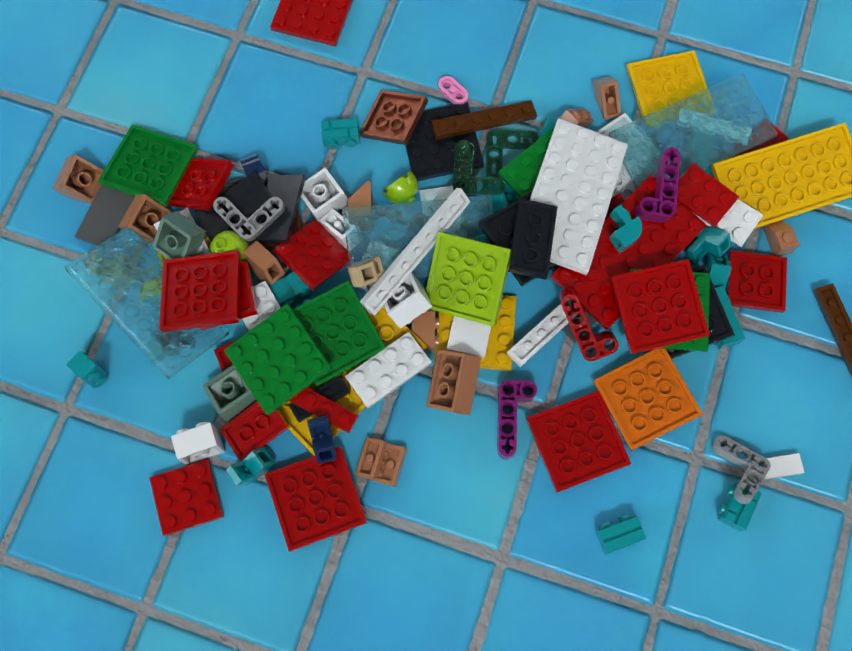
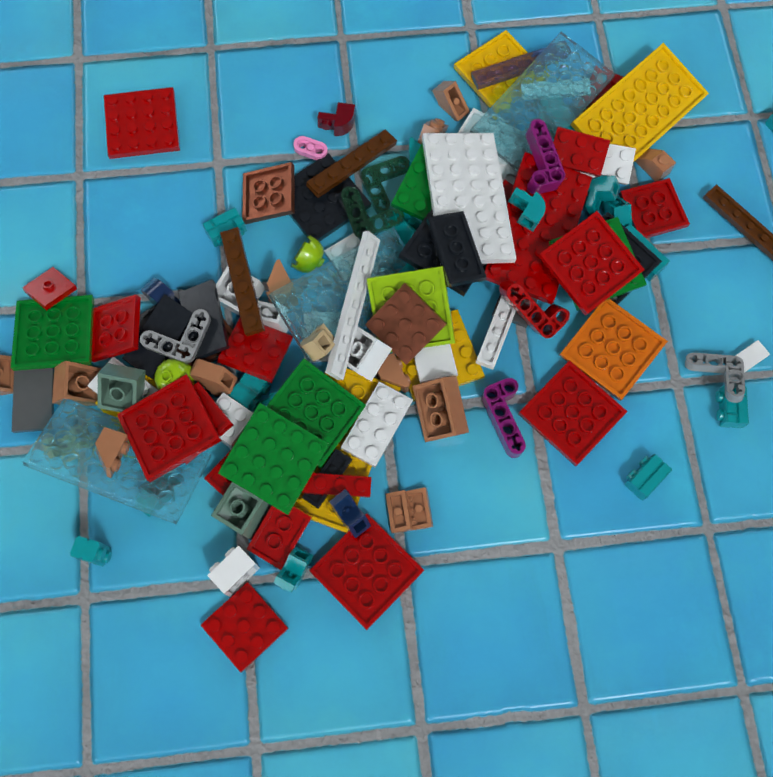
camera: 30 degrees left, 0 degrees up
(142, 288) = (110, 449): none -> nougat slope
(164, 125) = (49, 288): none -> red plate
(328, 188) = (242, 282): none -> reddish brown plate
(456, 289) = (406, 323): none -> copper plate
(493, 77) = (341, 122): none -> dark red brick
(670, 88) = (503, 70): none -> plate

